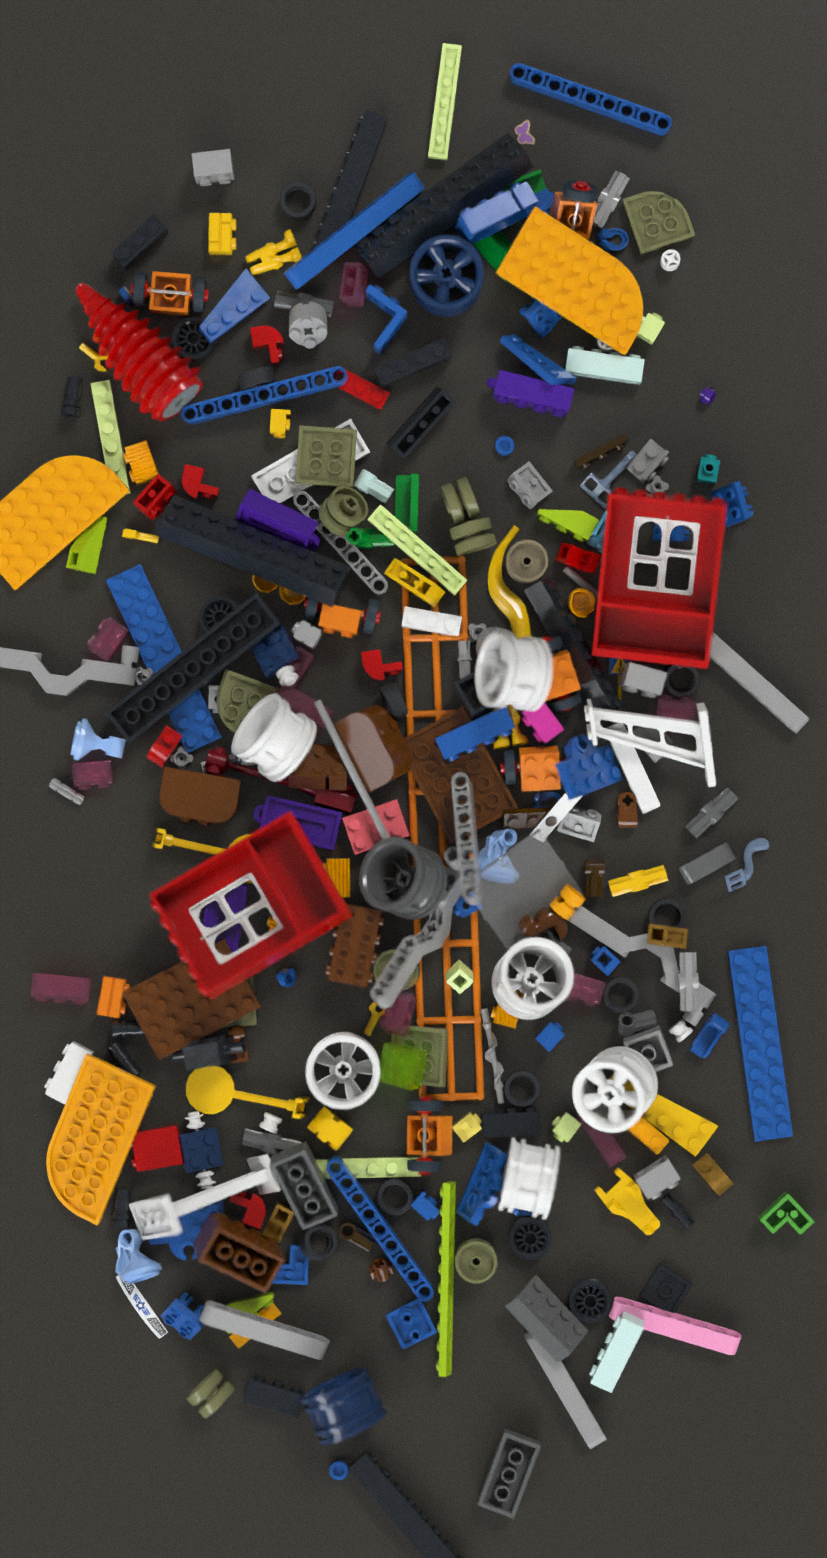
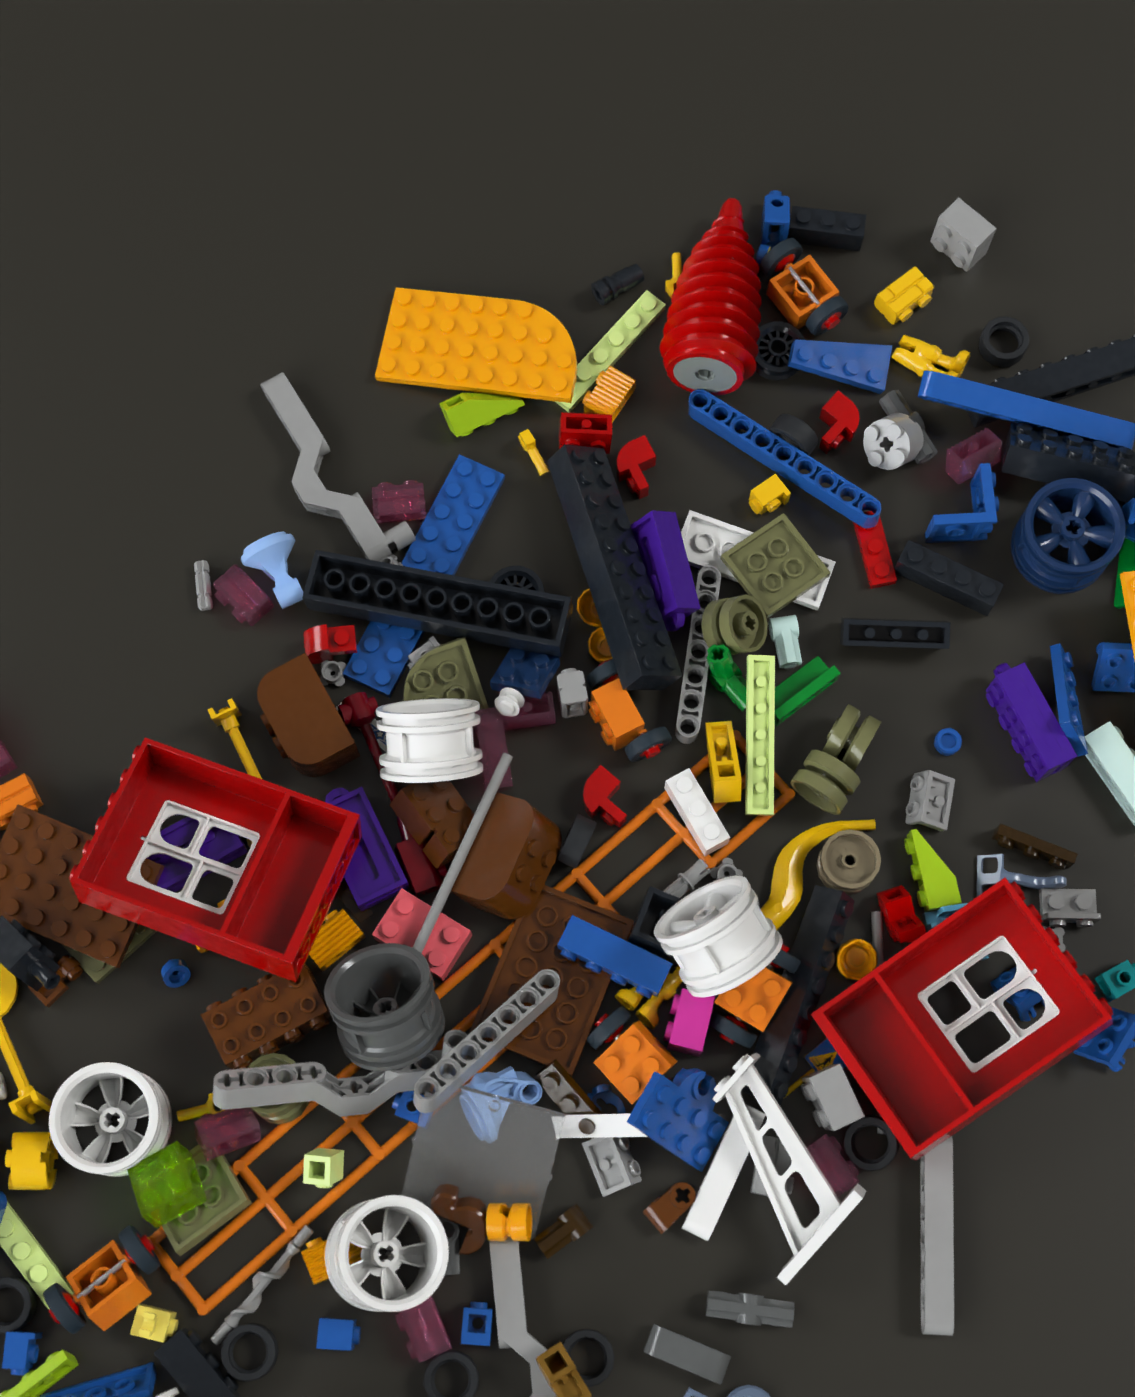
camera: 55 degrees right, 15 degrees down
(110, 269) = (775, 212): none -> blue torso
(637, 880) = (601, 1287): yellow piece -> none

